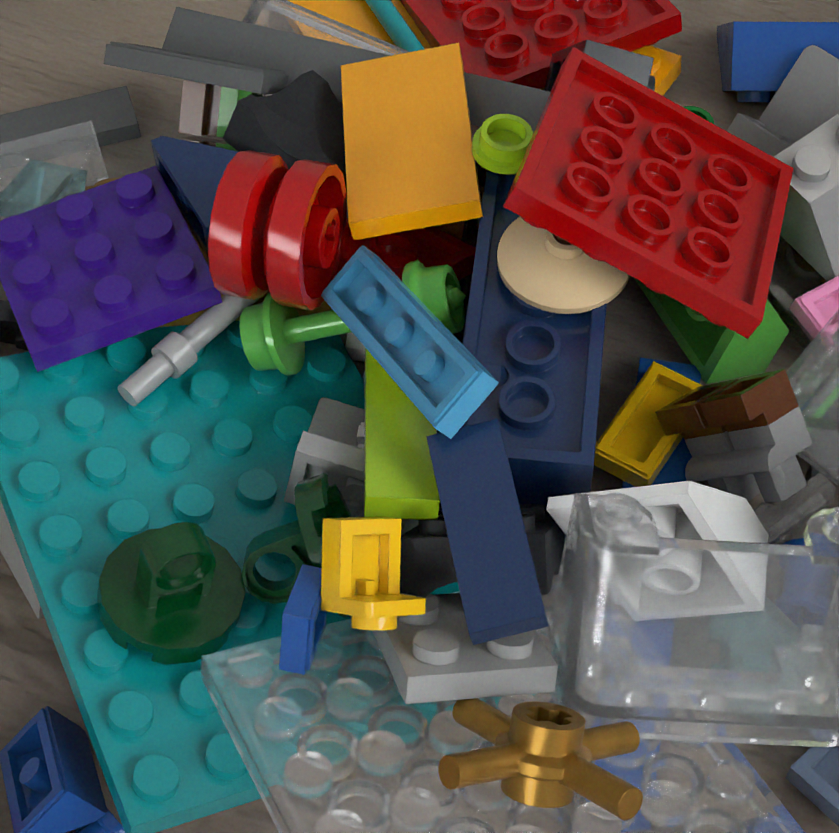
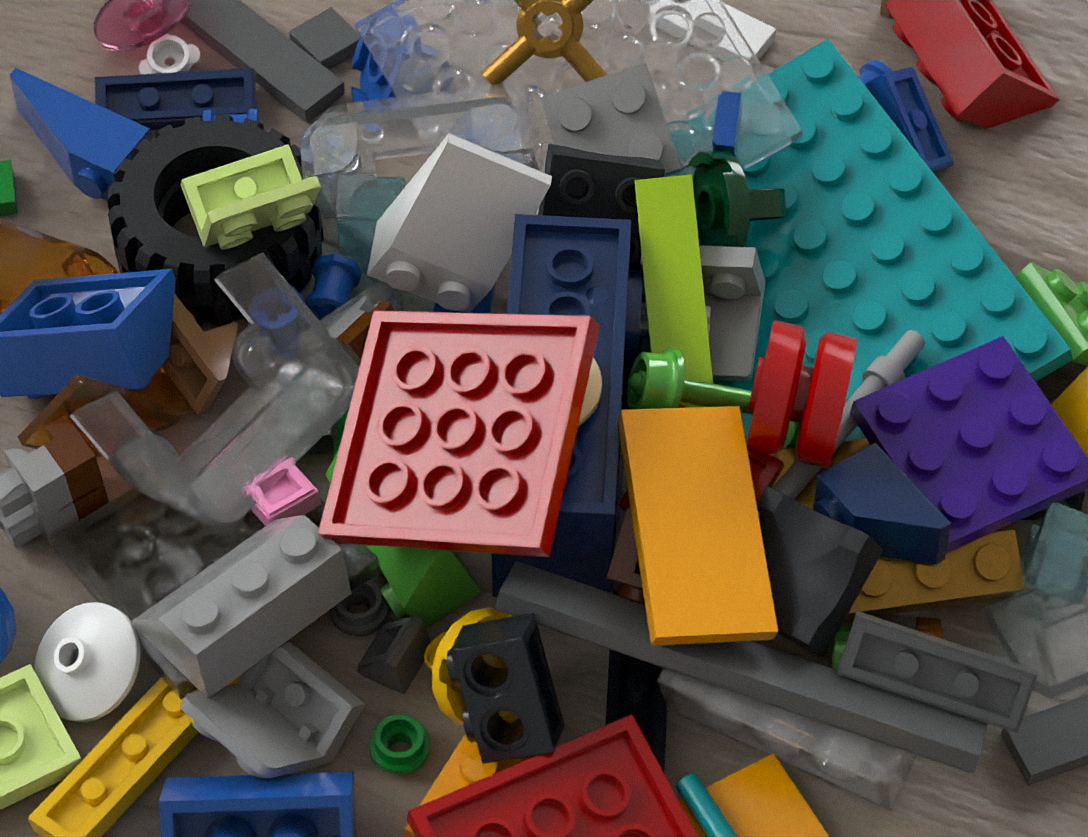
camera: 175 degrees right, 0 degrees up
(171, 593) = (836, 178): dark green tile -> none
(364, 572) = (681, 123): yellow bracket -> none
(409, 342) = (676, 296): dark azure tile -> none
(486, 533) = (598, 151): dark blue tile -> none
(501, 143) = (601, 473): lime plate -> none

